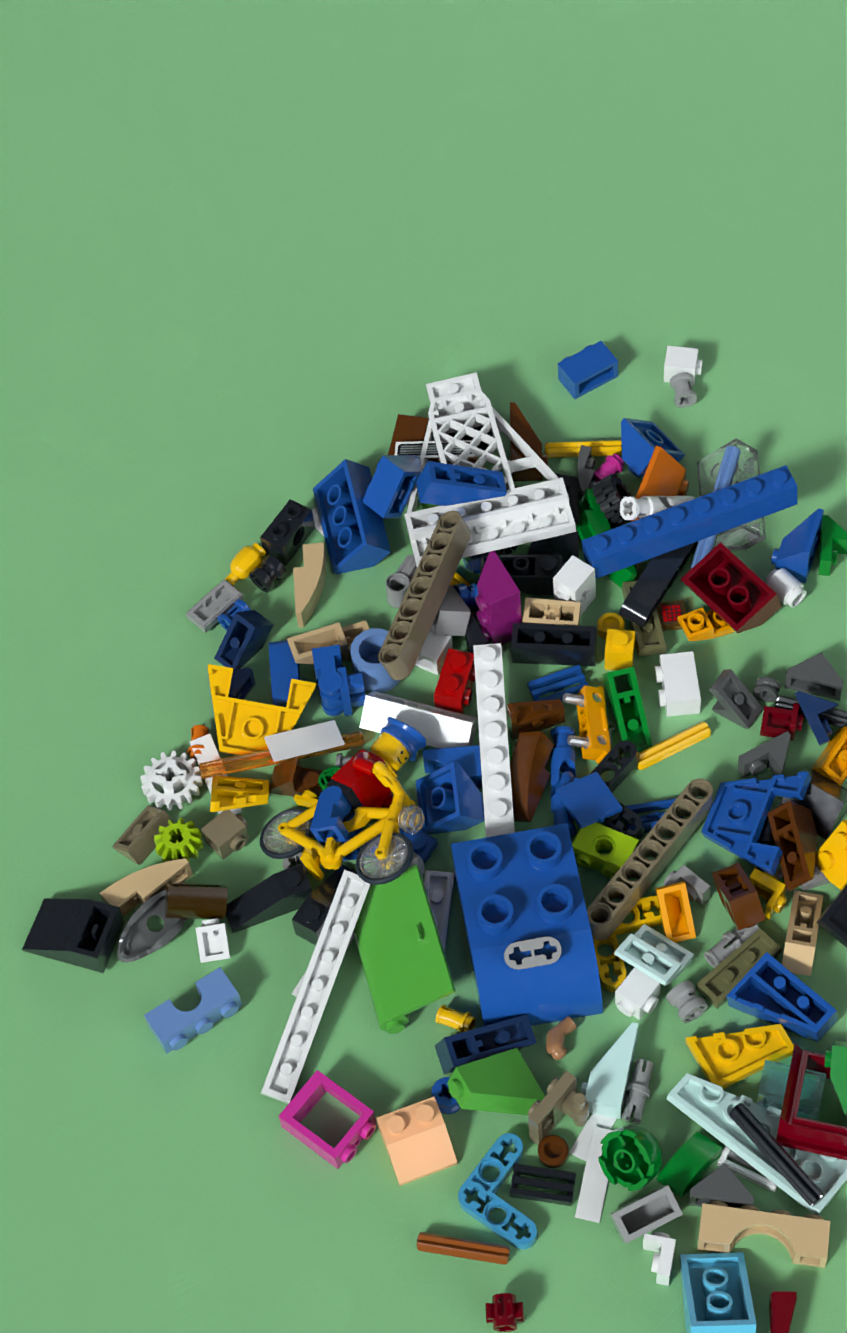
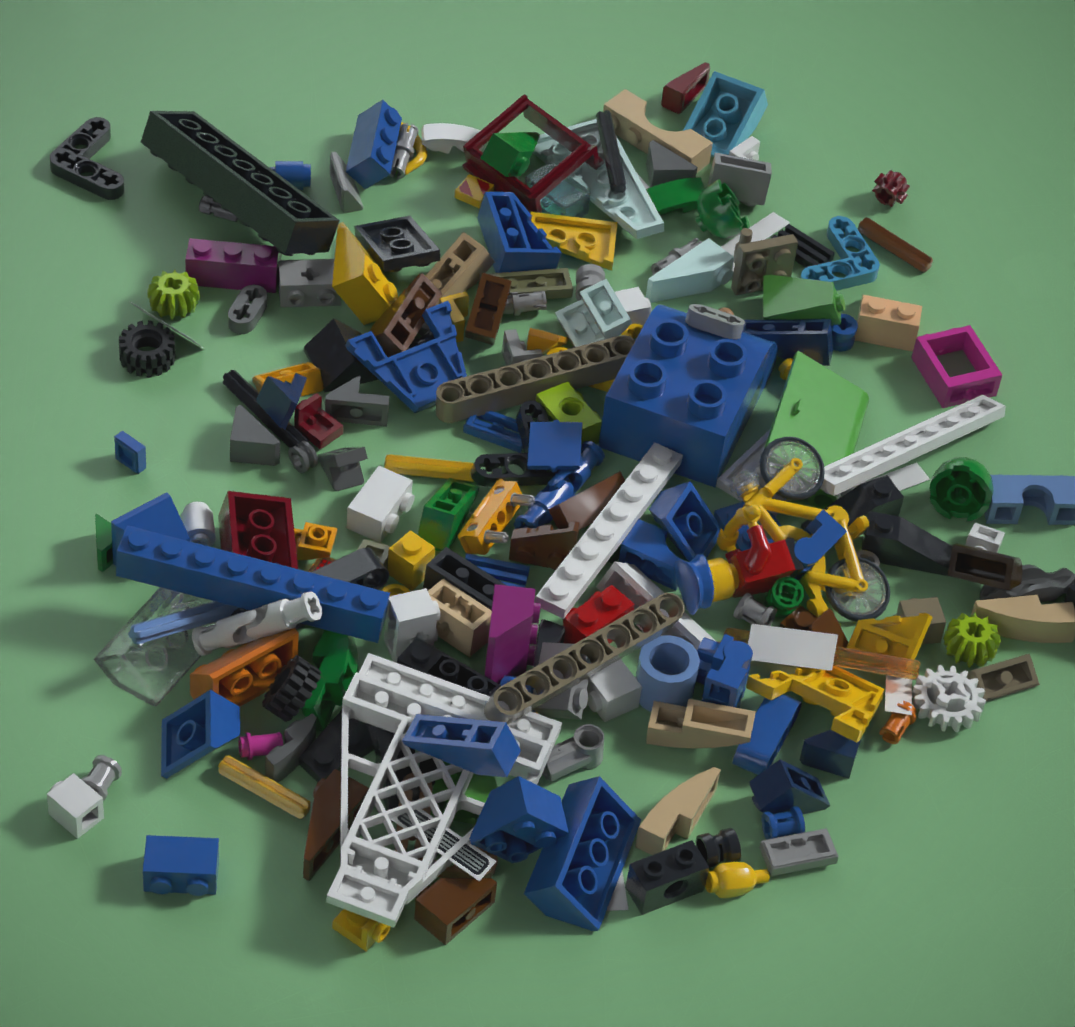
camera: 160 degrees left, 10 degrees down
(253, 973) = (961, 489): none -> green cylinder

